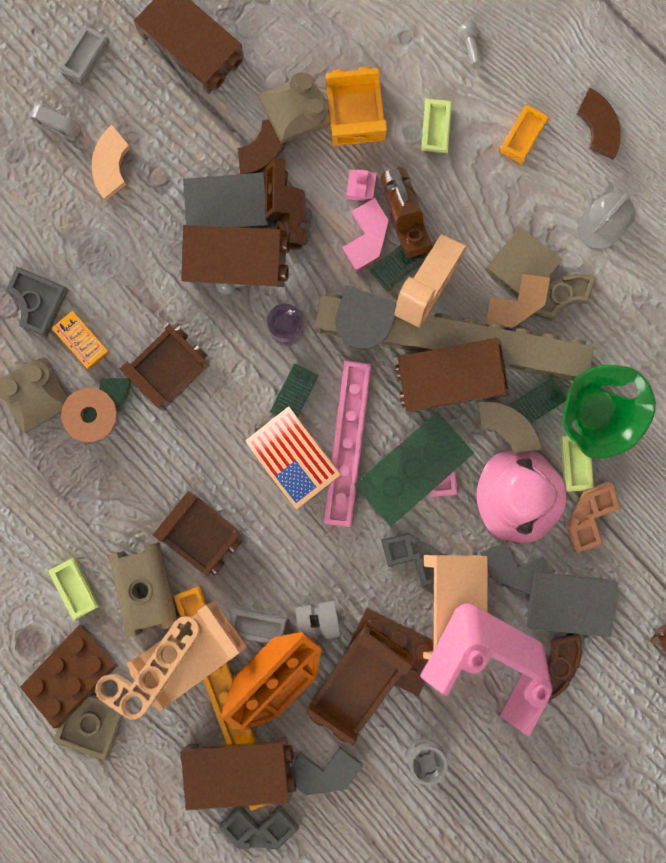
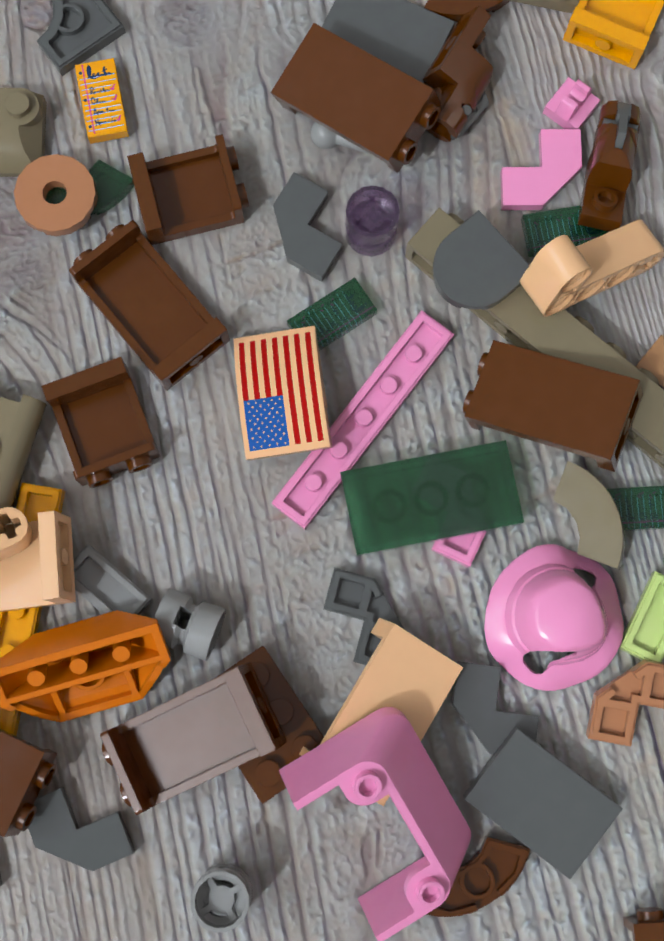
camera: 30 degrees right, 5 degrees down
(183, 448) = (148, 304): none -> reddish brown panel
(253, 360) = (303, 244): none -> dark grey tile

